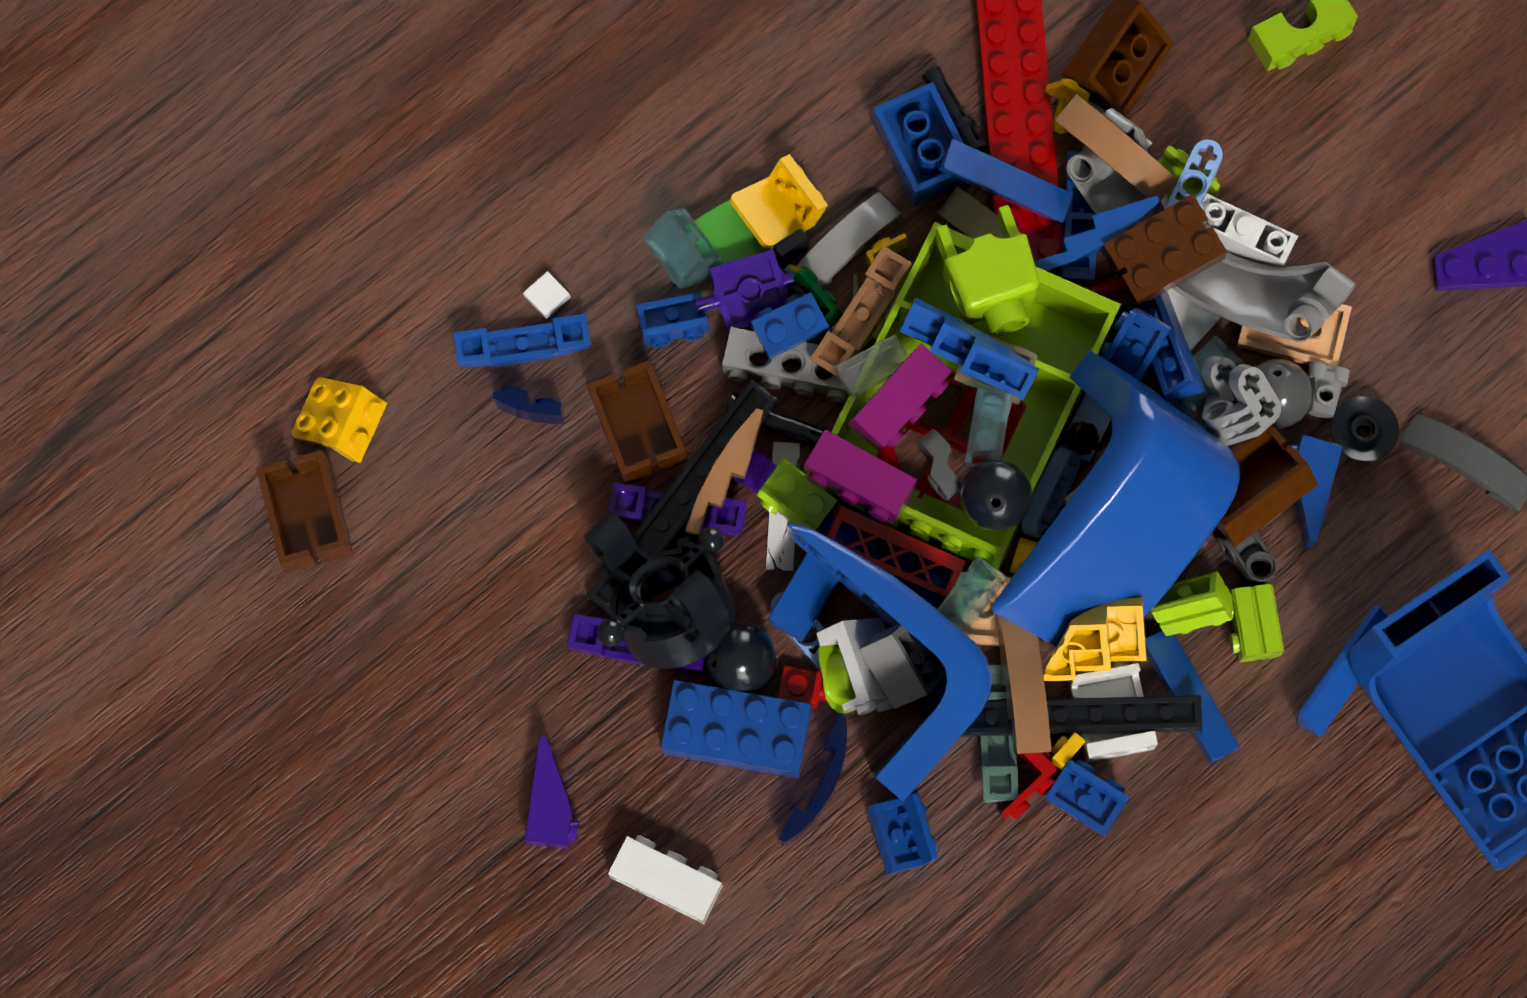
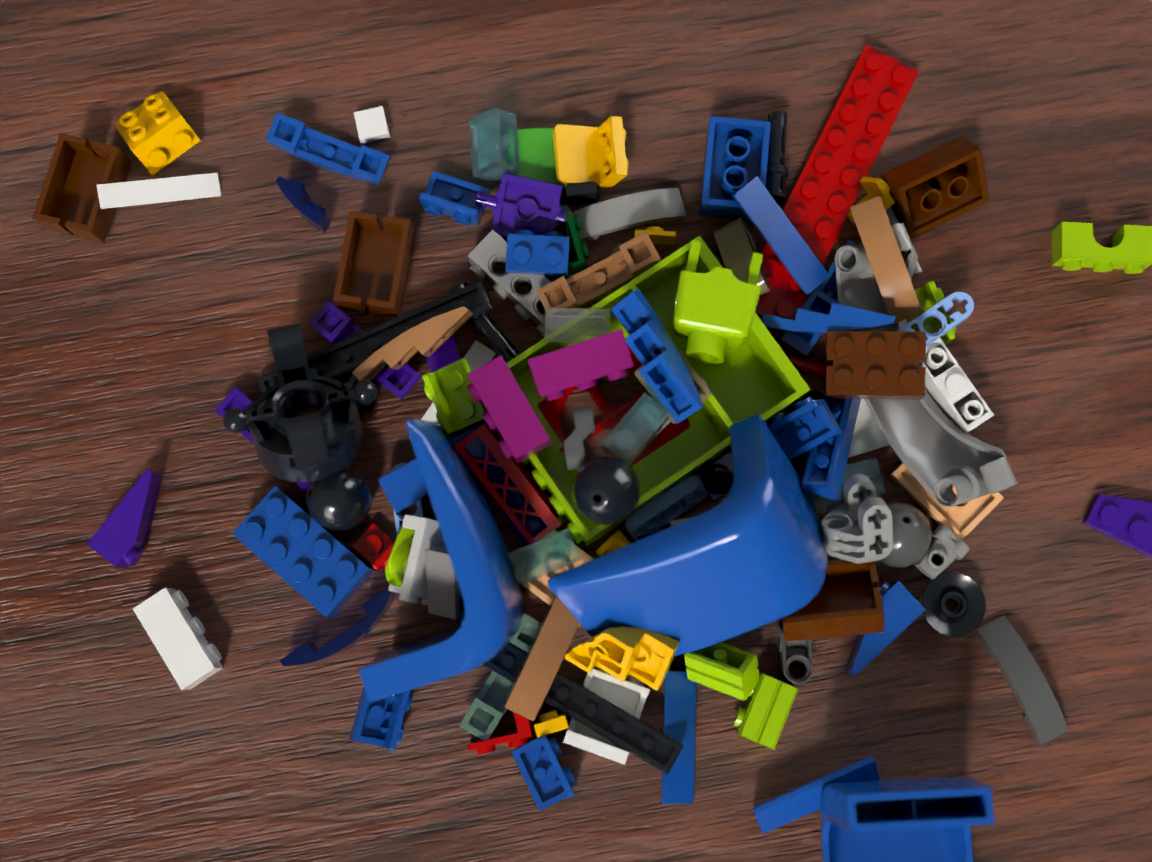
camera: 30 degrees right, 5 degrees up
(382, 471) = (158, 190): none -> white sticker

